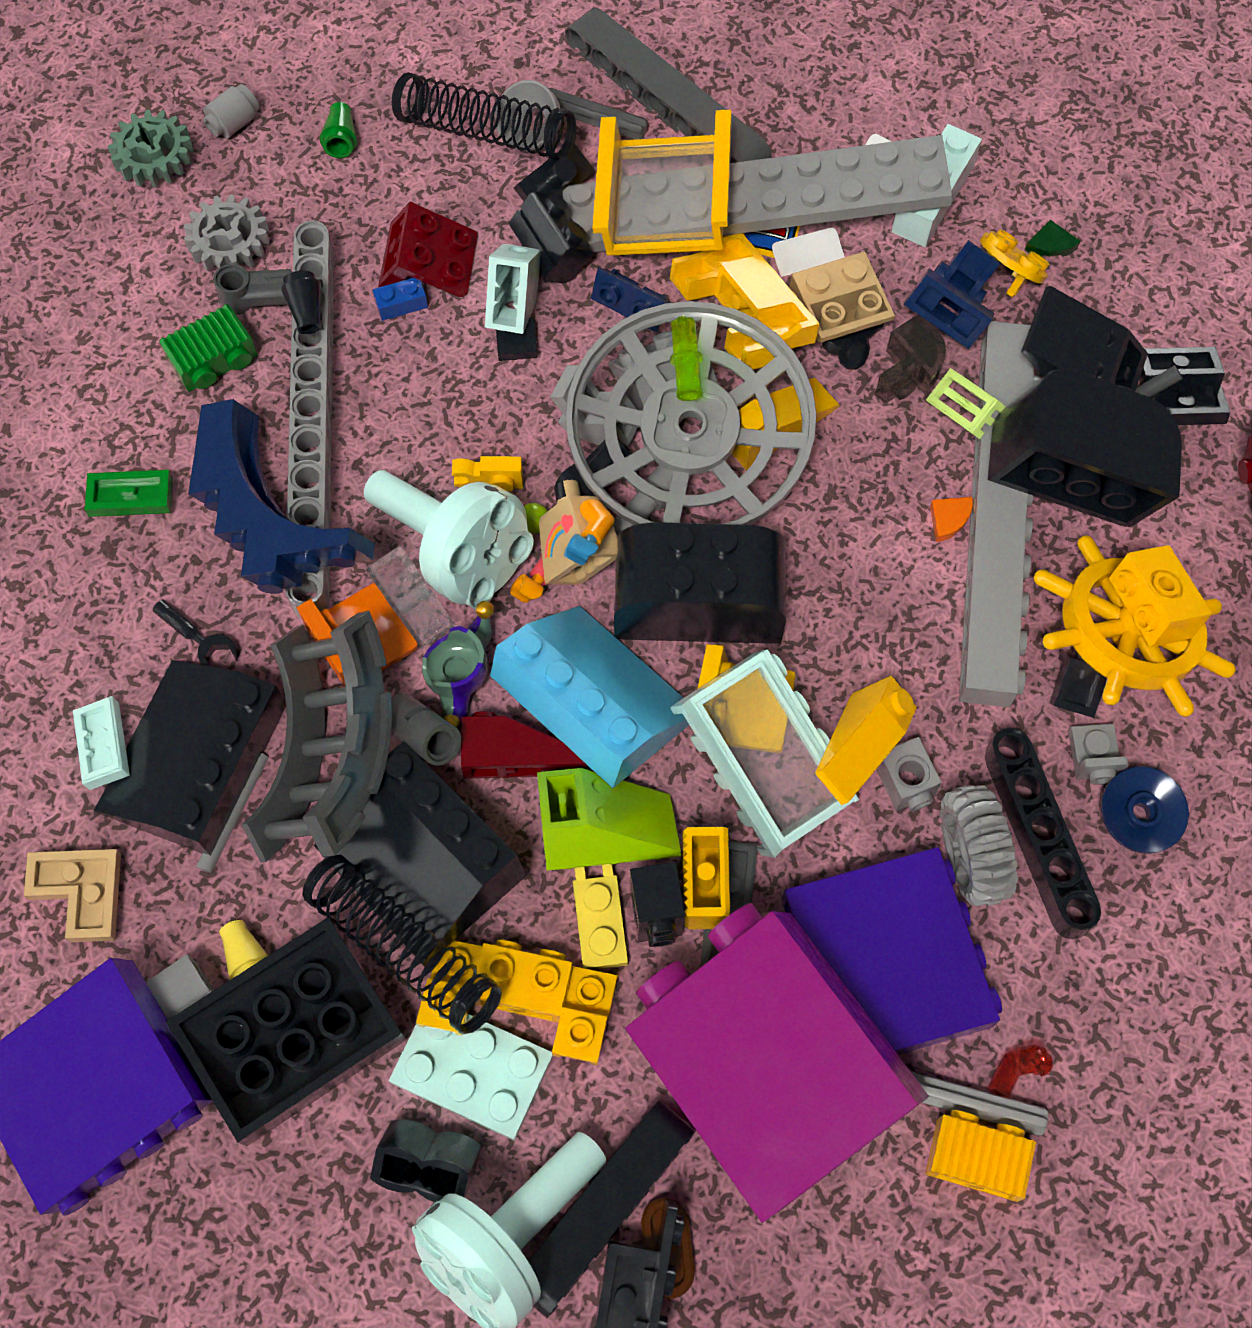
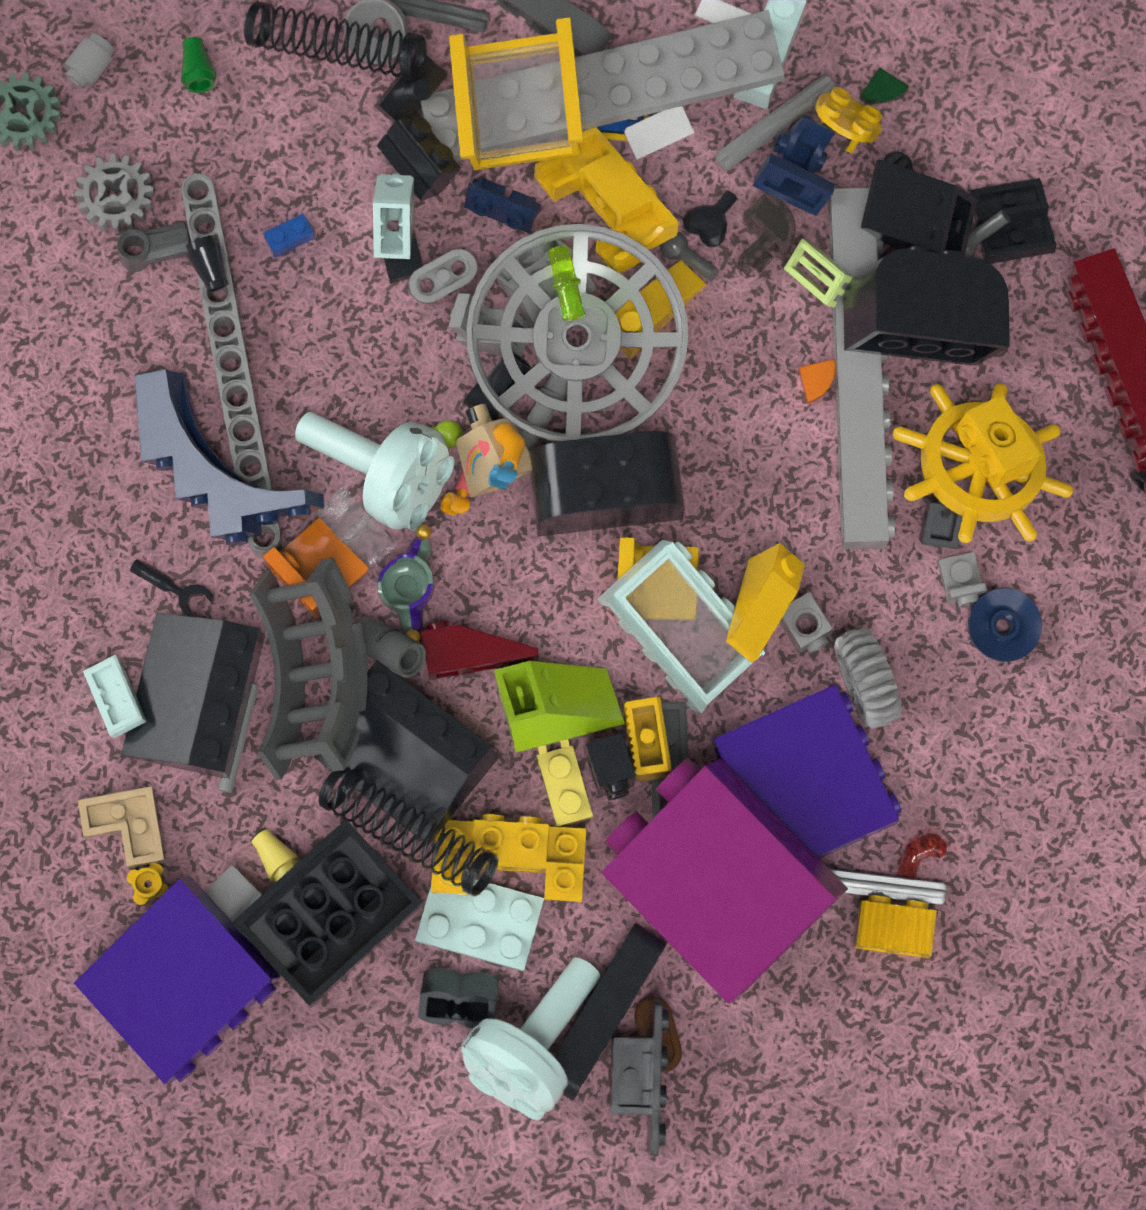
camera: 10 degrees left, 10 degrees up
(78, 954) = (138, 879): none -> yellow plate
(128, 493) = (83, 464): green plate -> none
(208, 348) = (125, 314): green brick -> none
(429, 250) = (305, 184): dark red bracket -> none
(494, 470) = (410, 399): yellow plate -> none
(552, 354) = (442, 277): none -> light grey plate
(589, 691) = (526, 590): medium azure slope -> none
(814, 365) = (678, 249): none -> dark grey bar
(842, 296) = (695, 184): tan slope -> none
(918, 264) = (773, 123): none -> light grey axle
(1039, 853) = (921, 639): black beam -> none

